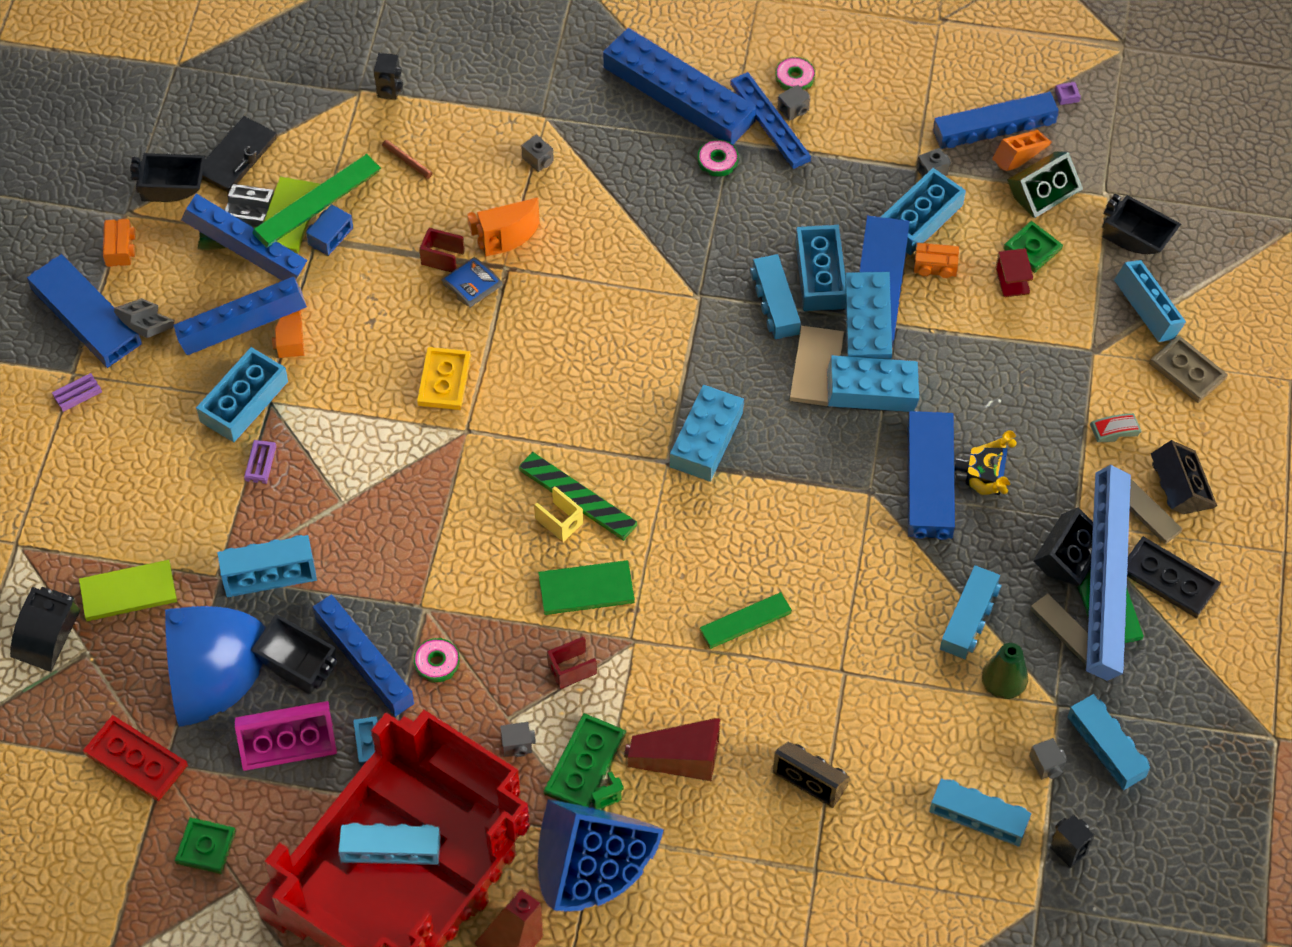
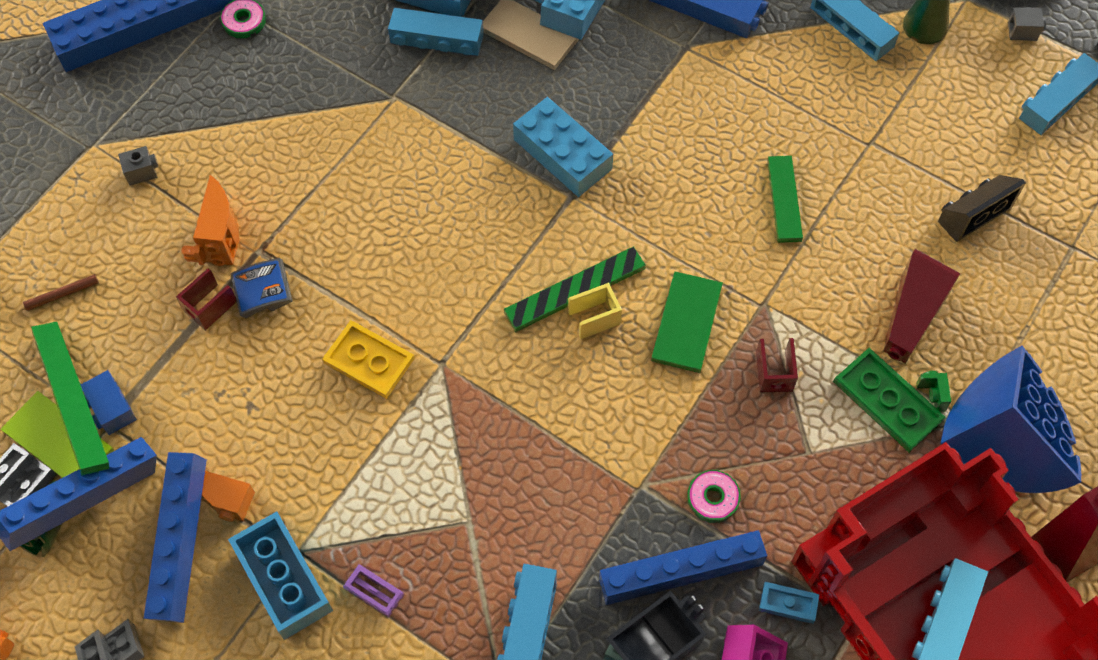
camera: 65 degrees left, 5 degrees up
(517, 739) = (845, 451): dark grey brick -> none

